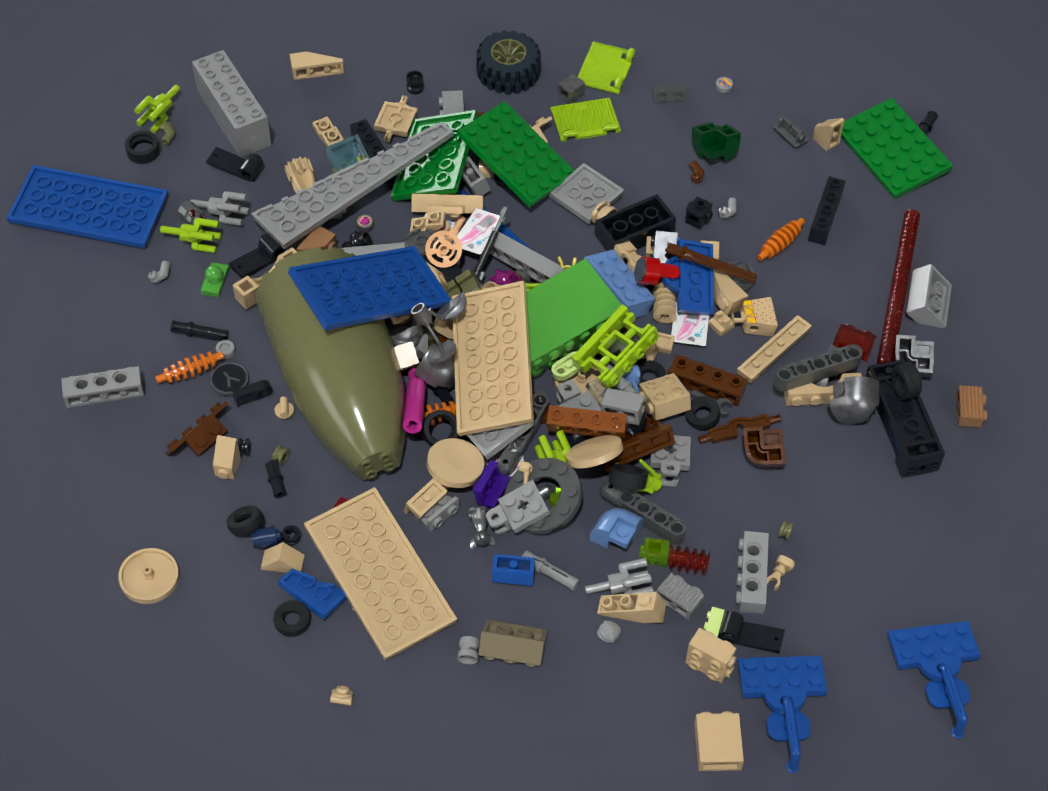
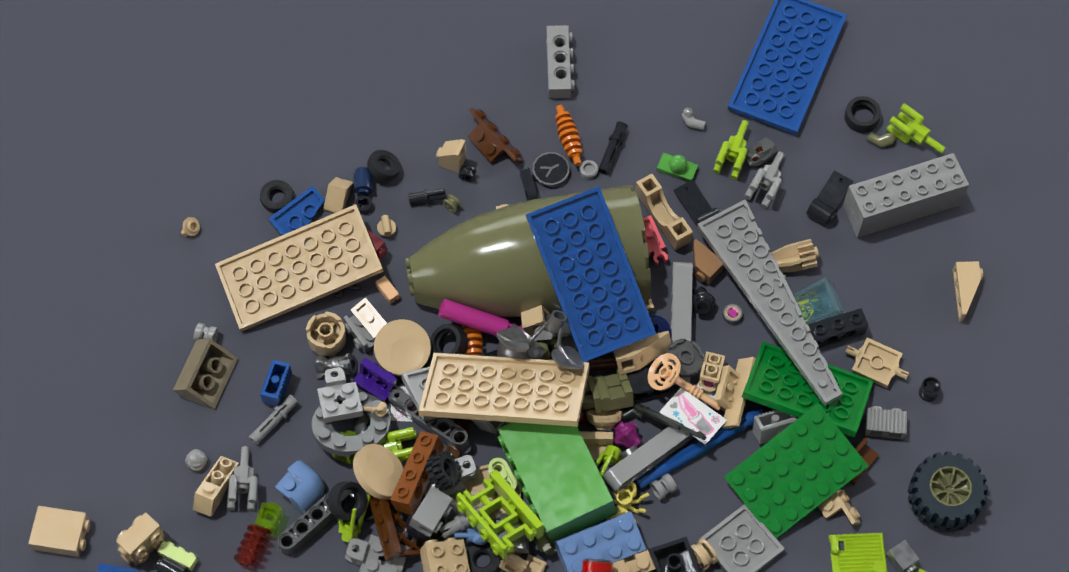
camera: 100 degrees right, 10 degrees up
(148, 575) = (348, 88): tan piece -> none
(315, 508) = (386, 226): none -> tan plate
(326, 131) = (866, 293): tan slope -> none
(390, 494) = (387, 290): none -> light nougat piece
(450, 536) = (326, 334): none -> tan brick
(547, 250) = (663, 486): none -> light grey wheel
(583, 396) = (443, 470): none -> black tyre
(680, 596) = (216, 531): light grey brick -> none

